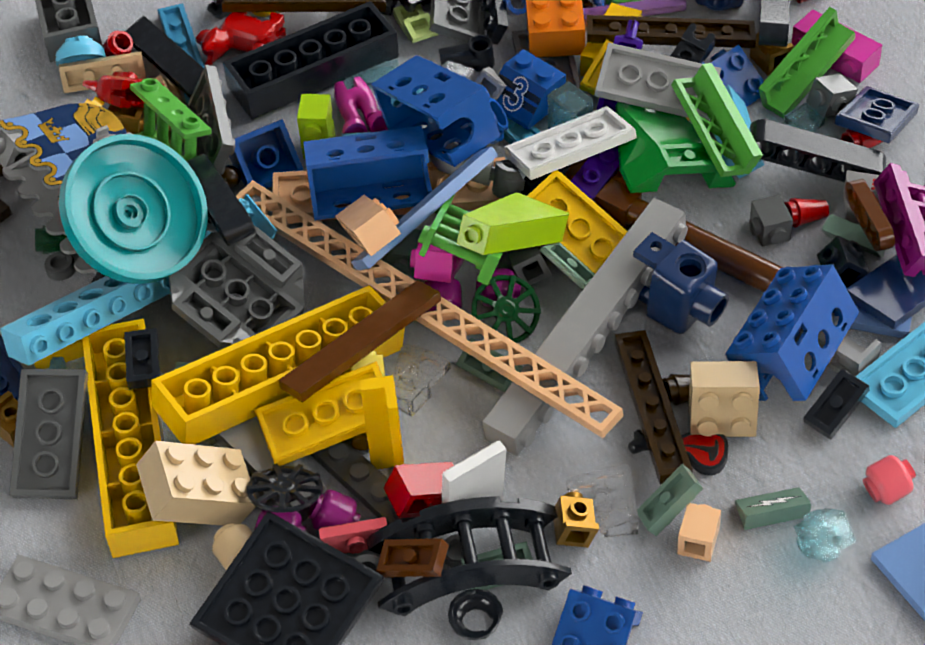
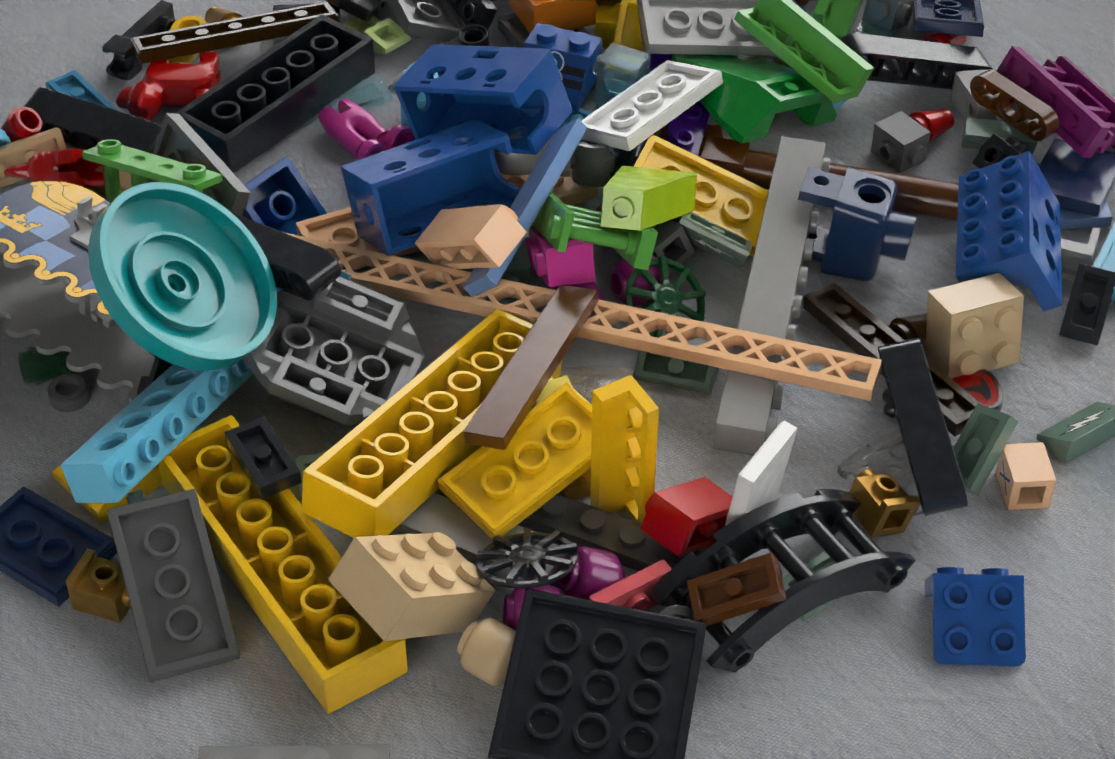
camera: 25 degrees left, 5 degrees down
(315, 118) = (326, 153): lime brick -> none
(474, 600) = (824, 625): black piece -> none
(629, 470) = (922, 427): none -> black beam

